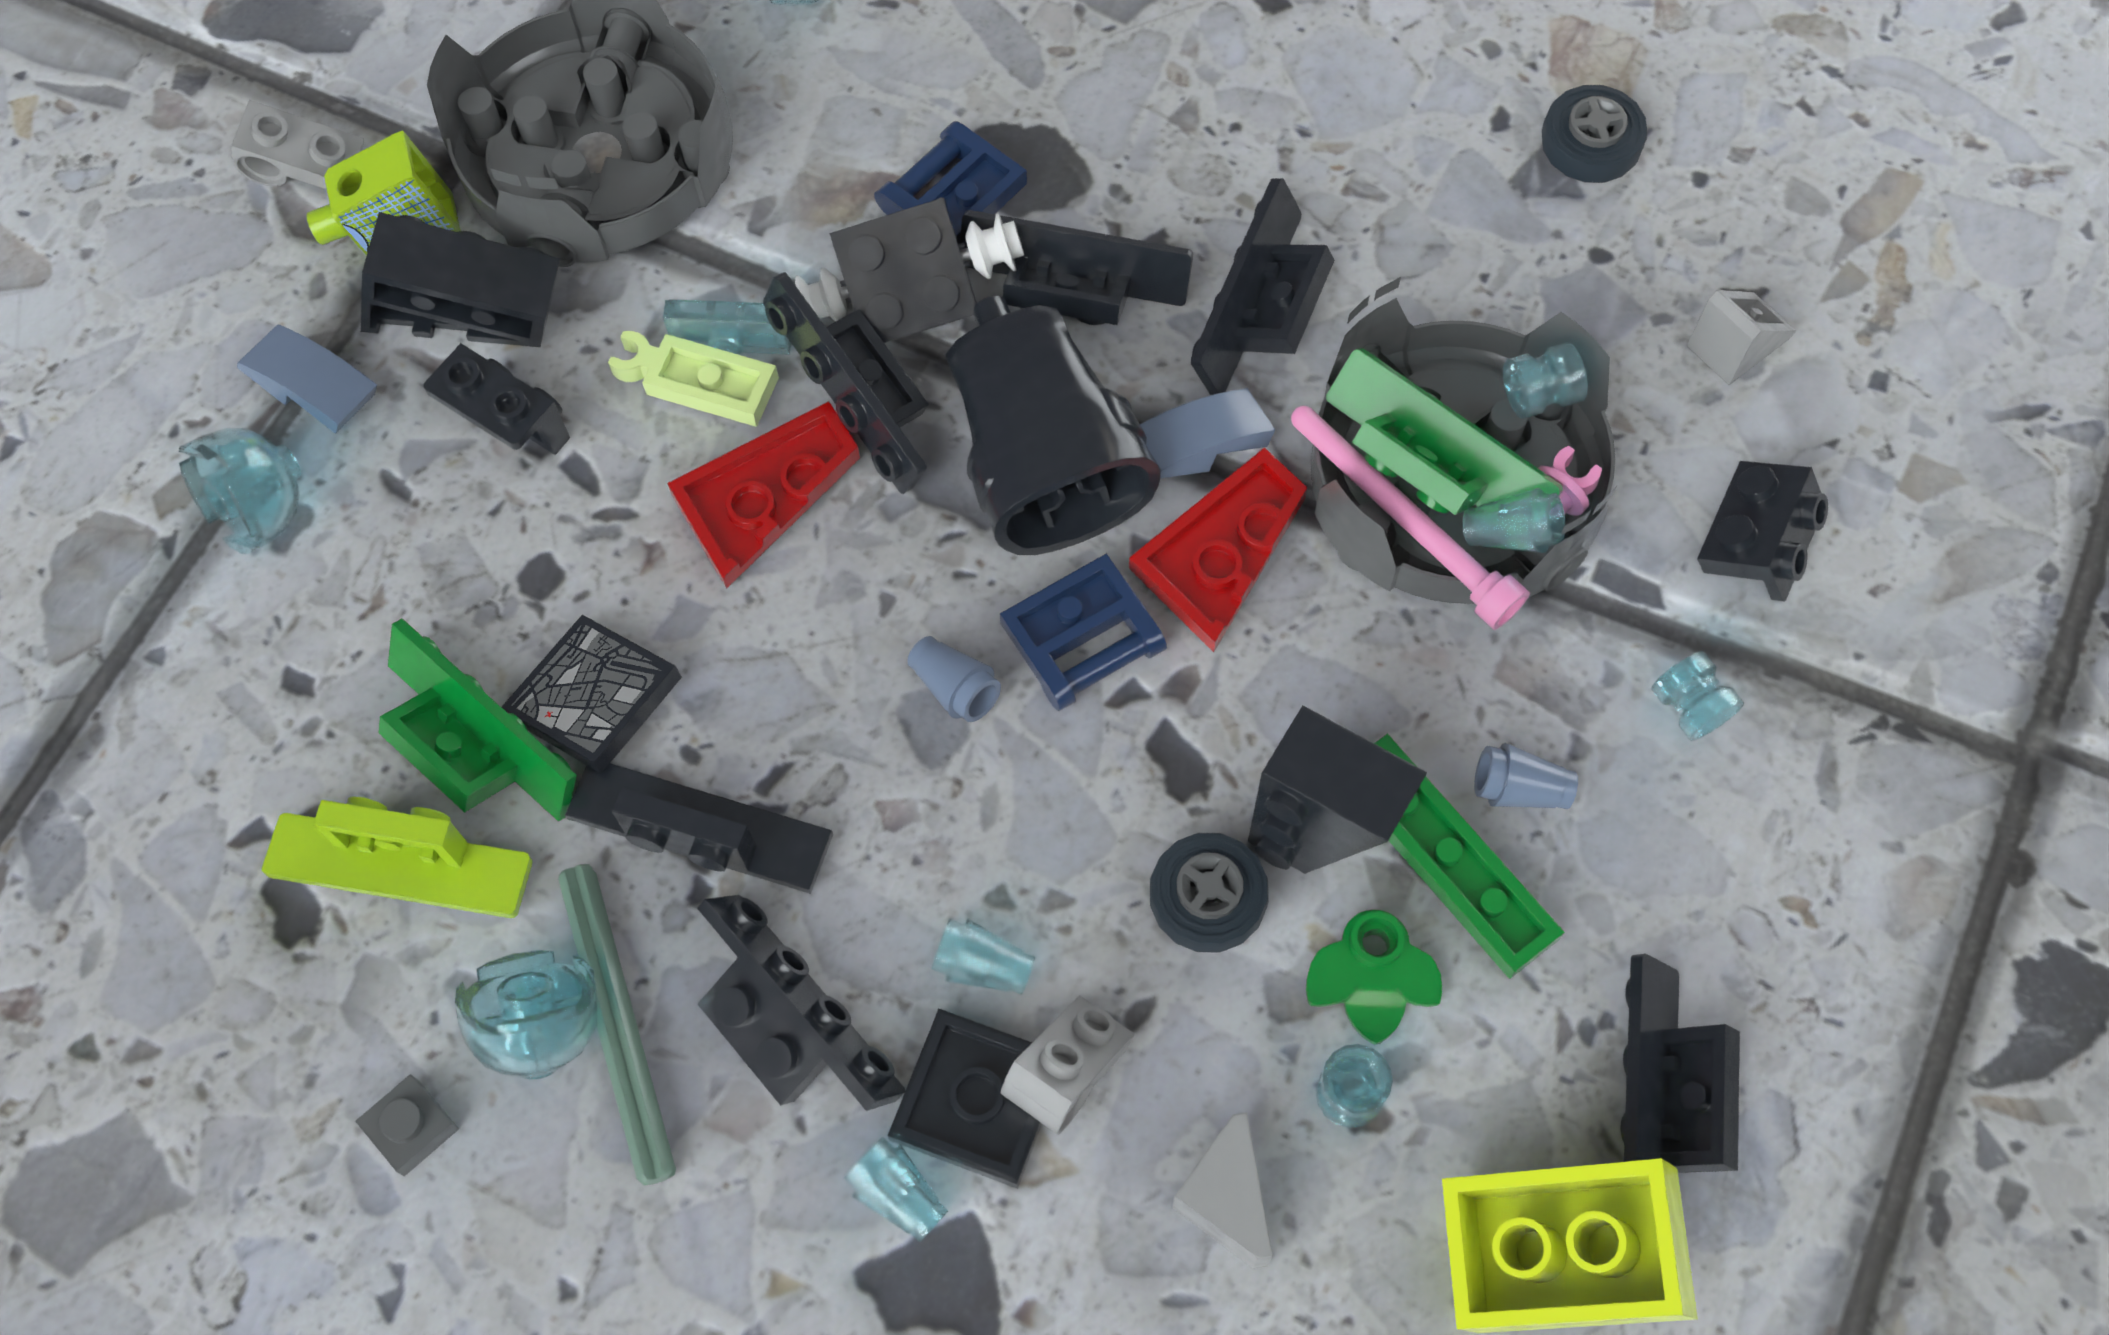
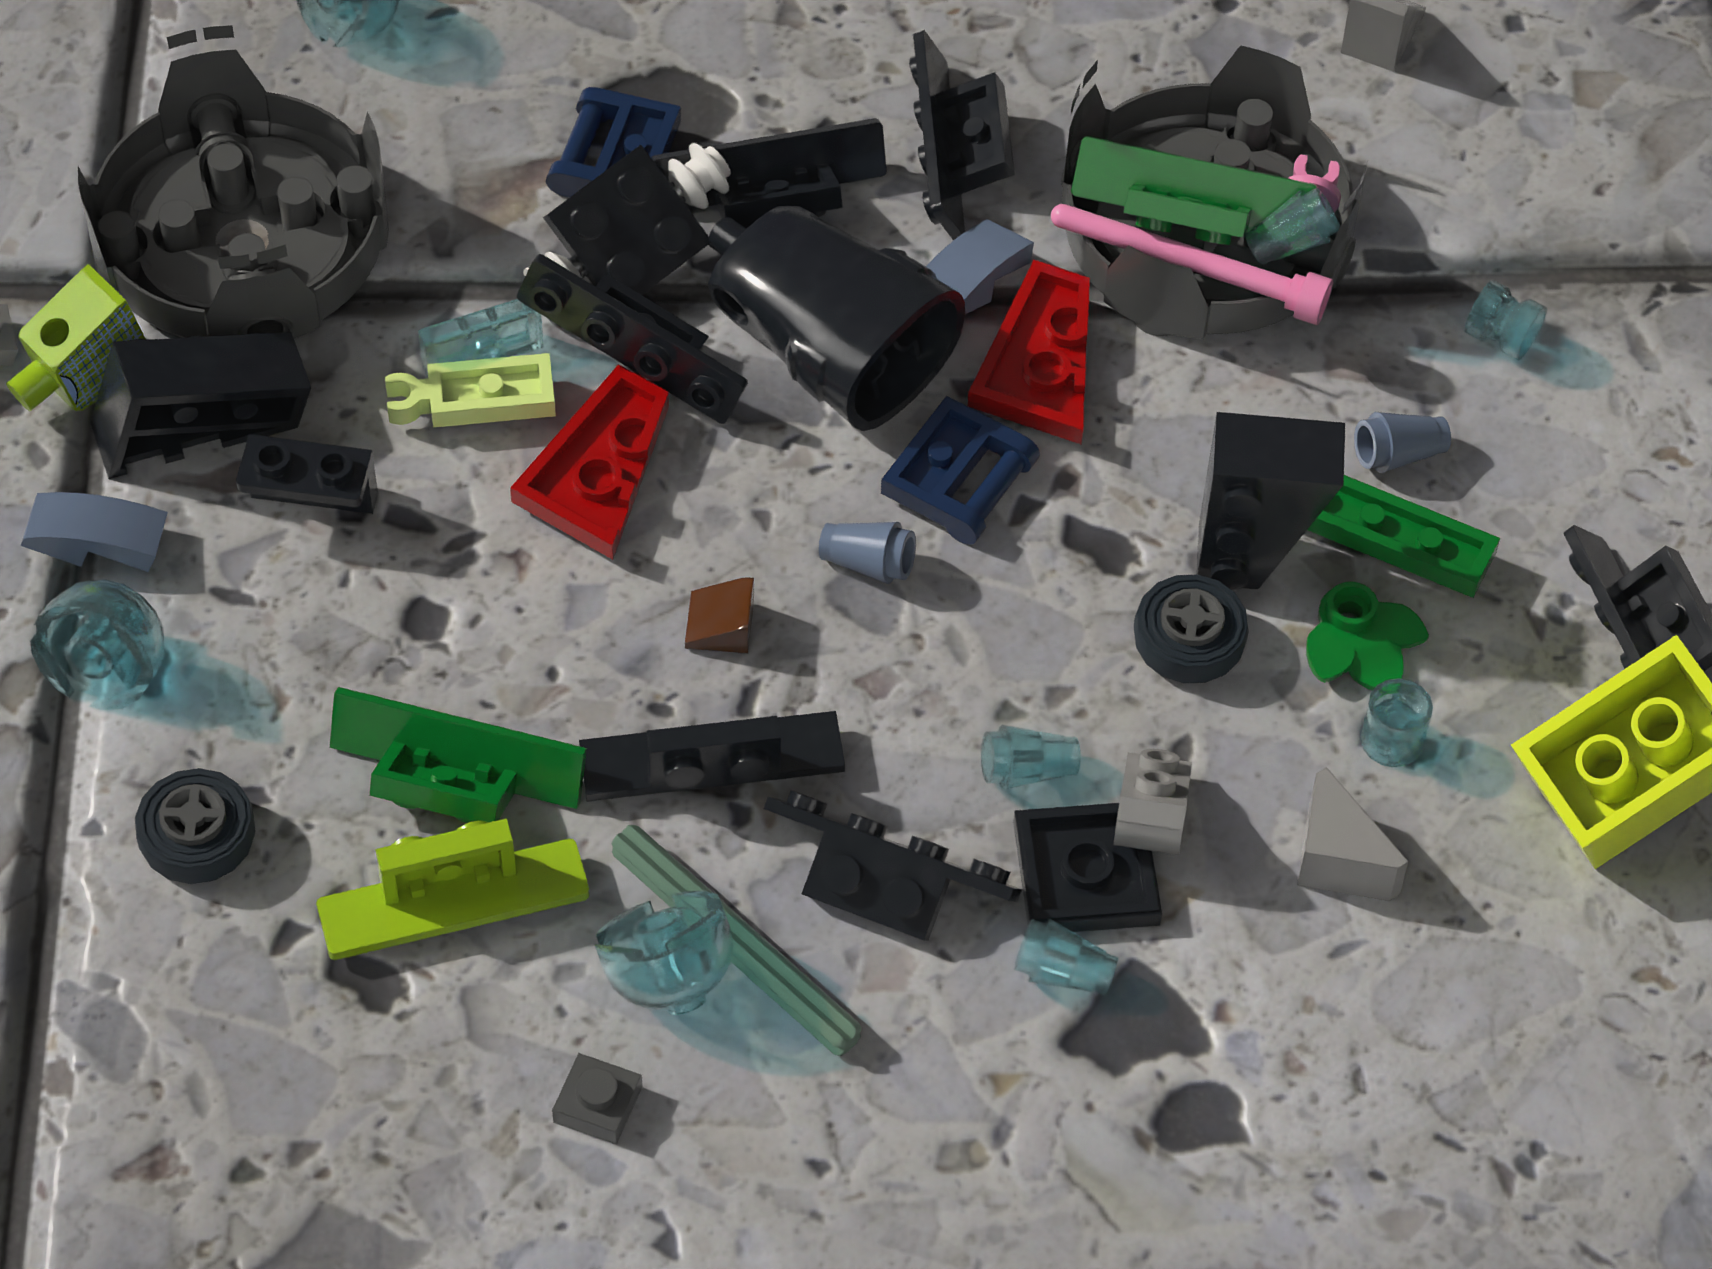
camera: 30 degrees left, 10 degrees down
(219, 672) = (174, 811): none -> black wheel
(592, 693) = (551, 682): tile -> none
(788, 688) = (721, 617): none -> reddish brown slope
(1545, 380) = (1246, 113): clear light blue wheel -> none
(1765, 526) = (1487, 168): black bracket -> none

